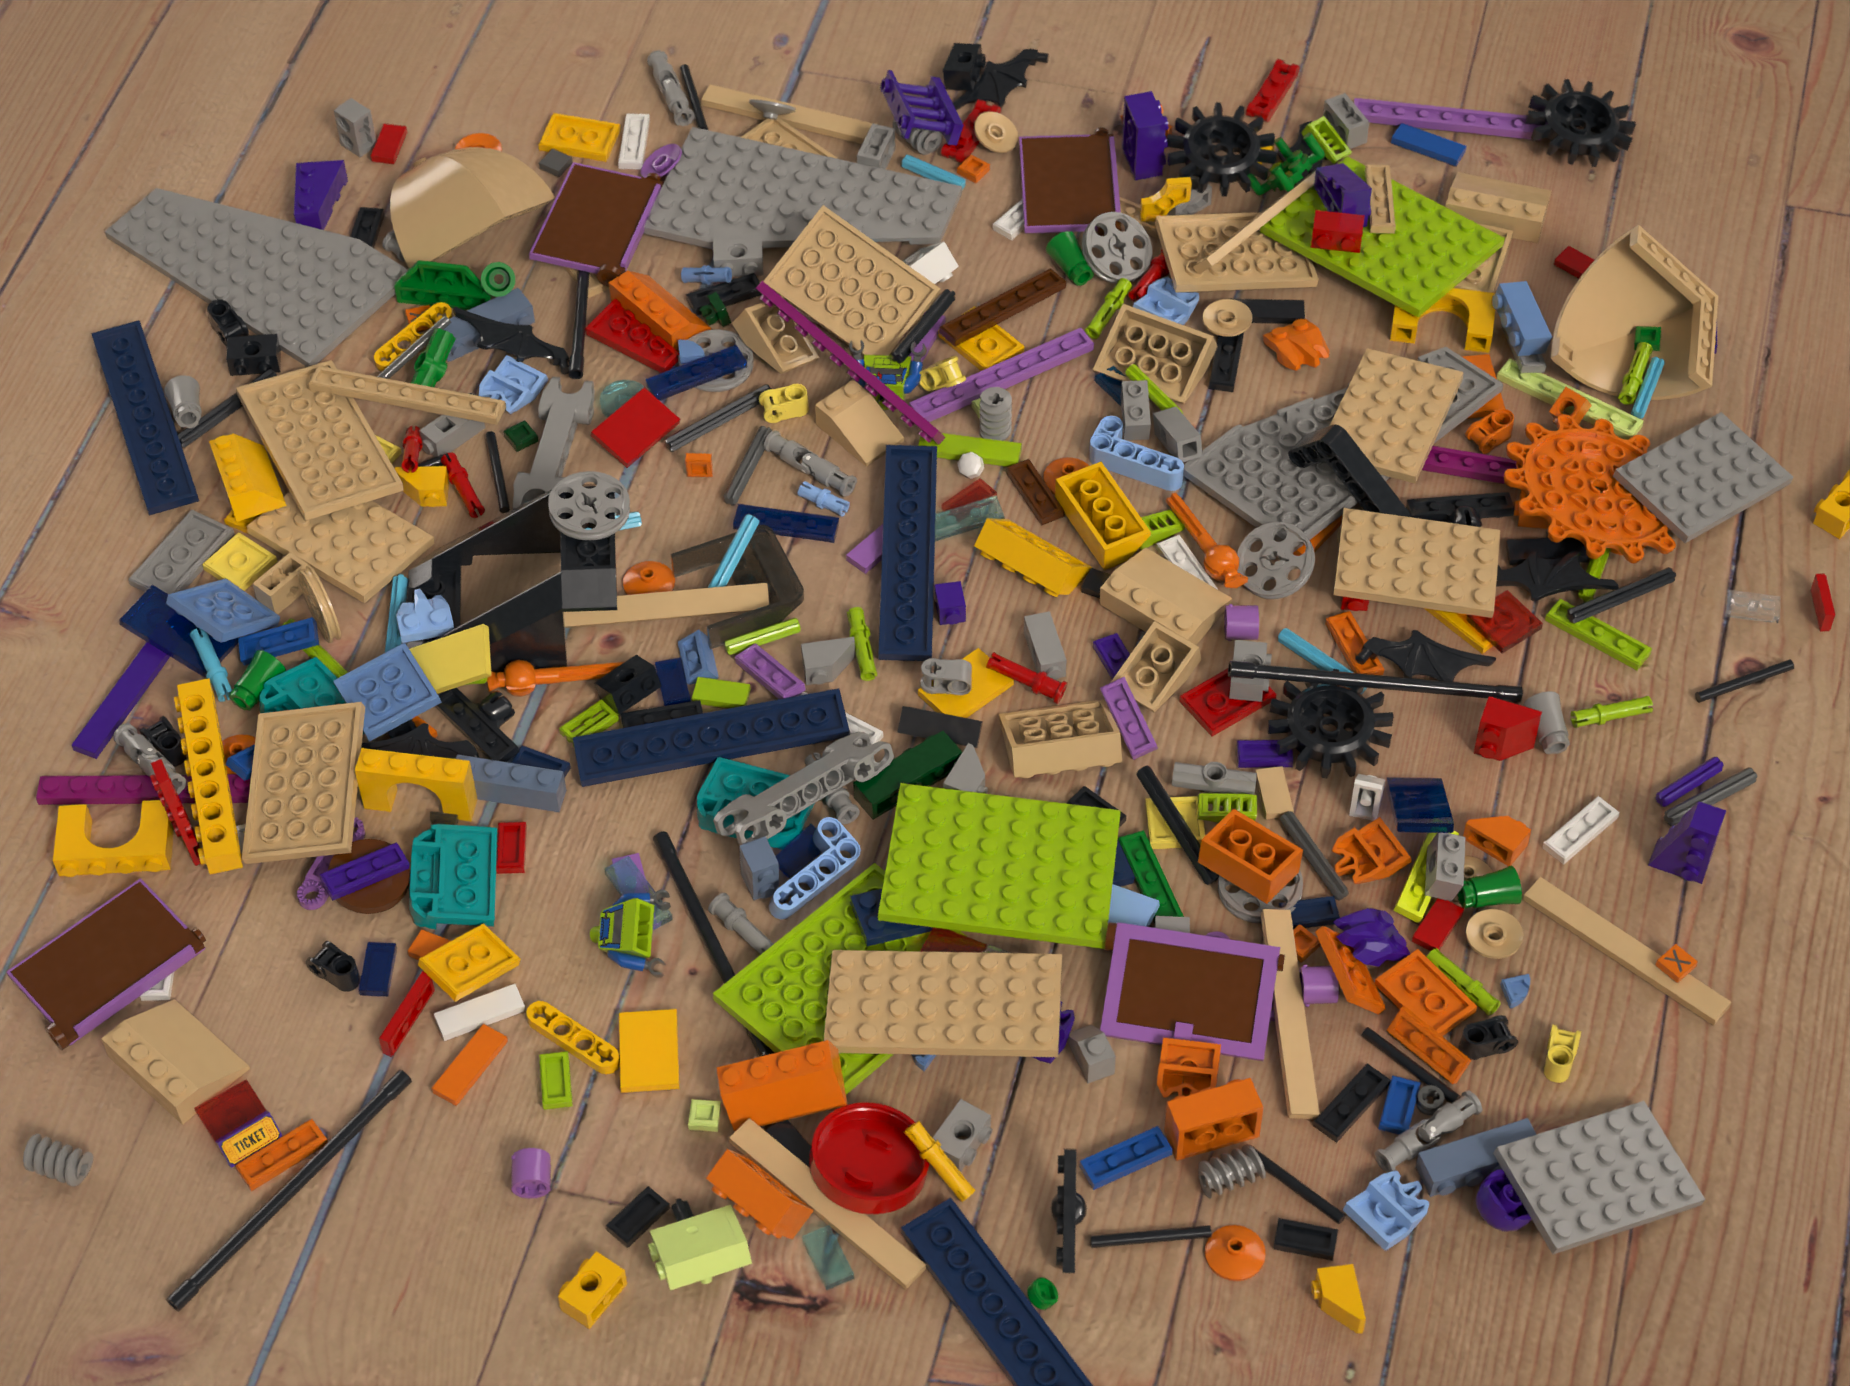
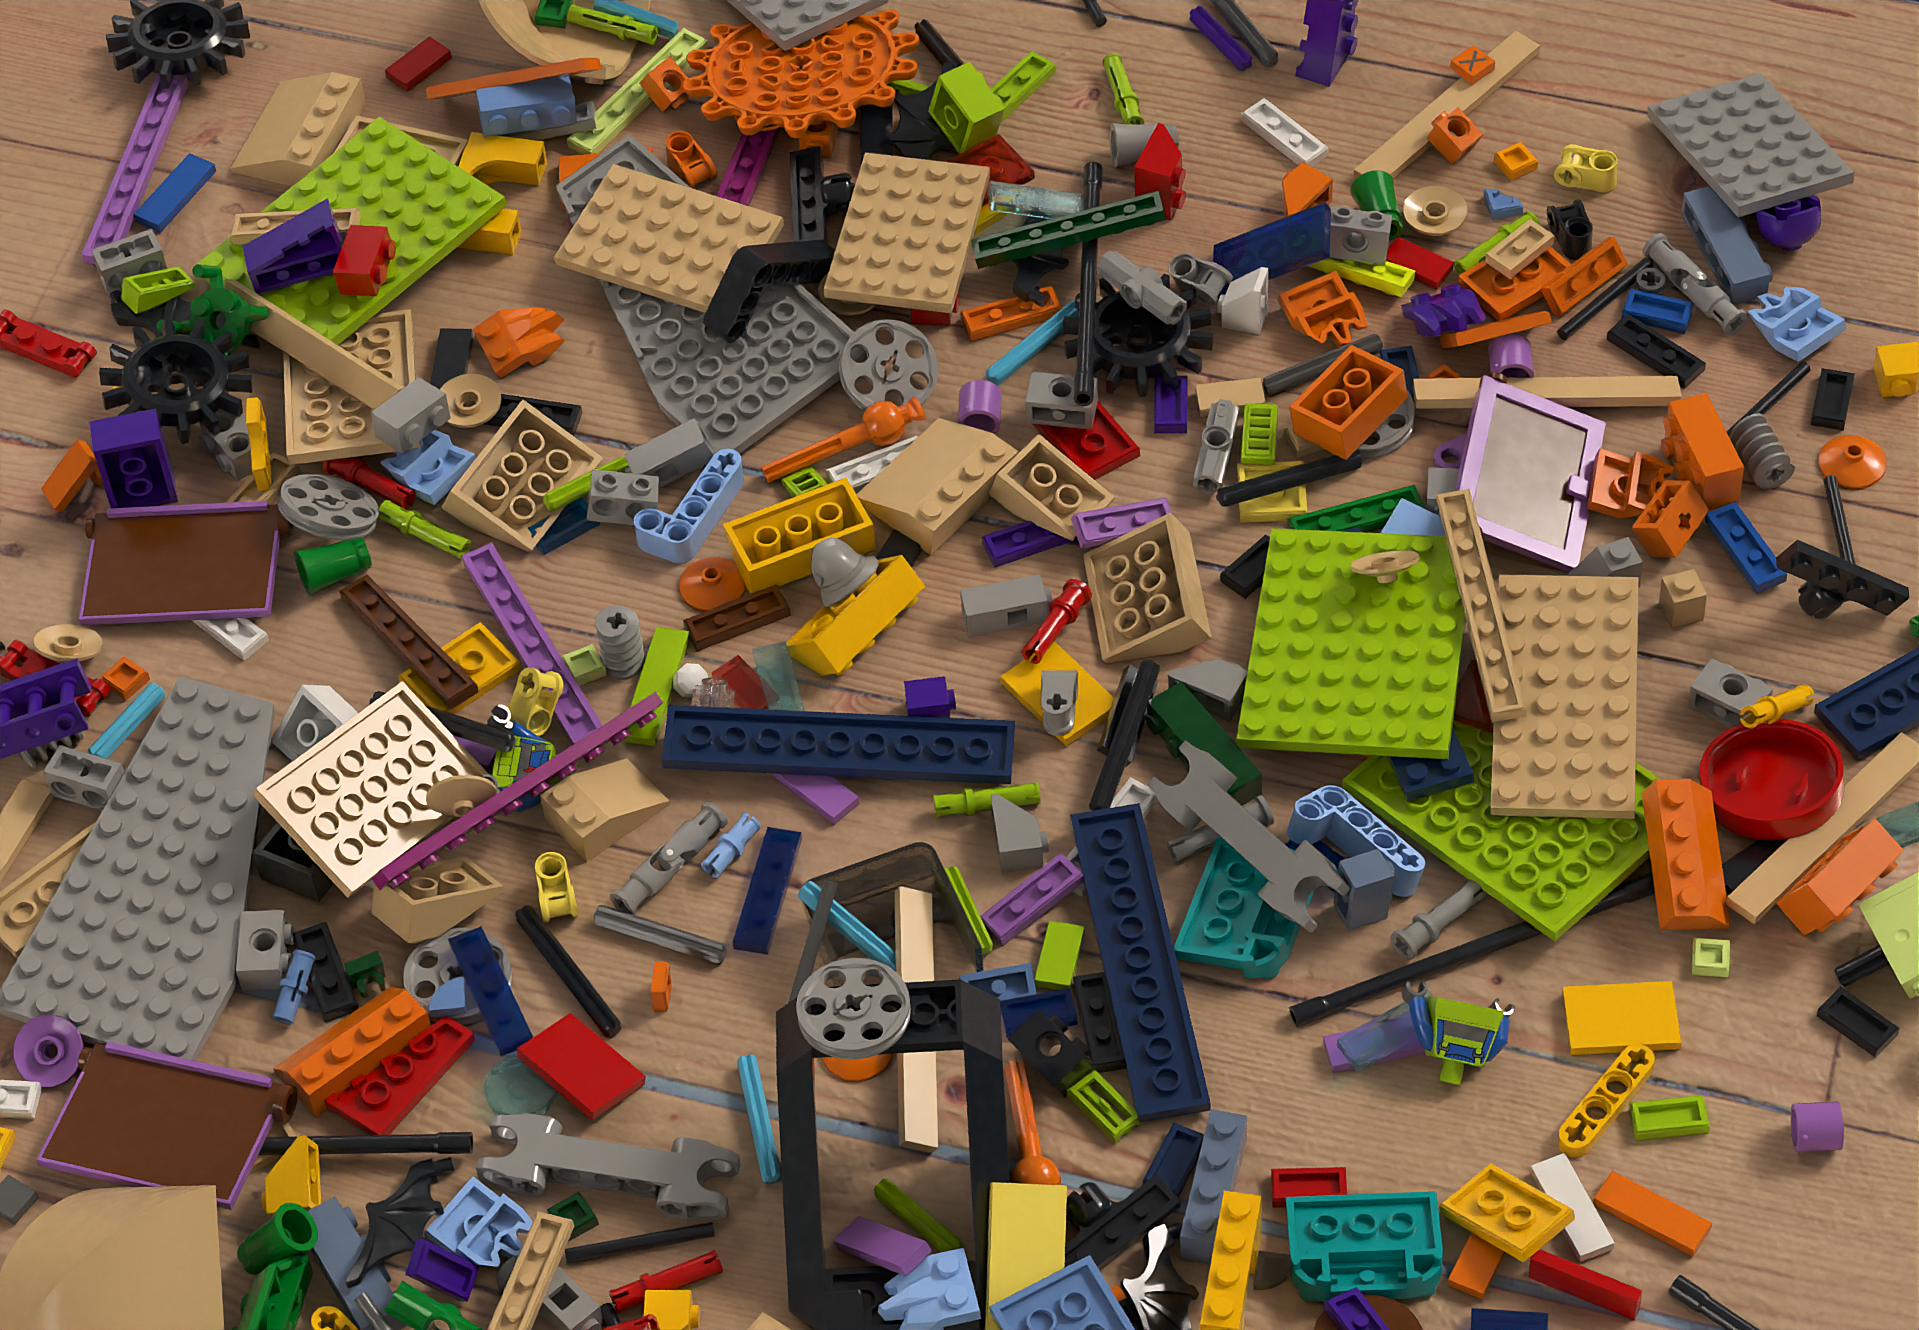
camera: 85 degrees left, 0 degrees up
(469, 590) = (882, 1246): none -> medium lavender tile
(470, 361) = (442, 1270): none -> dark purple tile
(547, 287) = (294, 1178): none -> yellow slope
(711, 534) = (814, 936): none -> dark grey bar
(838, 330) = (459, 794): none -> tan dish
(909, 717) = (1125, 735): none -> black axle
(951, 476) = (713, 693): none -> clear gear
(1024, 935) = (1481, 606): none -> tan tile
(1062, 867) = (1385, 564): none -> tan dish
(1063, 1104) = (1682, 598): none -> tan brick
(1069, 538) = (839, 569): none -> light grey piece
(1142, 1093) = (1670, 518): none -> orange brick
(1190, 273) = (410, 415): none -> light grey brick
(1362, 710) = (1141, 287): none -> light grey piece
(1392, 761) = (1201, 275): none -> light grey piece
(1425, 664) = (1068, 230): none -> dark green plate
(1445, 988) = (1519, 248): none -> tan plate
(1469, 648) = (1032, 200): none -> clear light blue tile
(1545, 305) = (530, 74): none -> orange tile
(1552, 588) = (966, 107): none -> lime brick
(1570, 1001) = (1515, 161): none -> light orange tile
(1584, 958) = (1450, 146): none -> orange brick

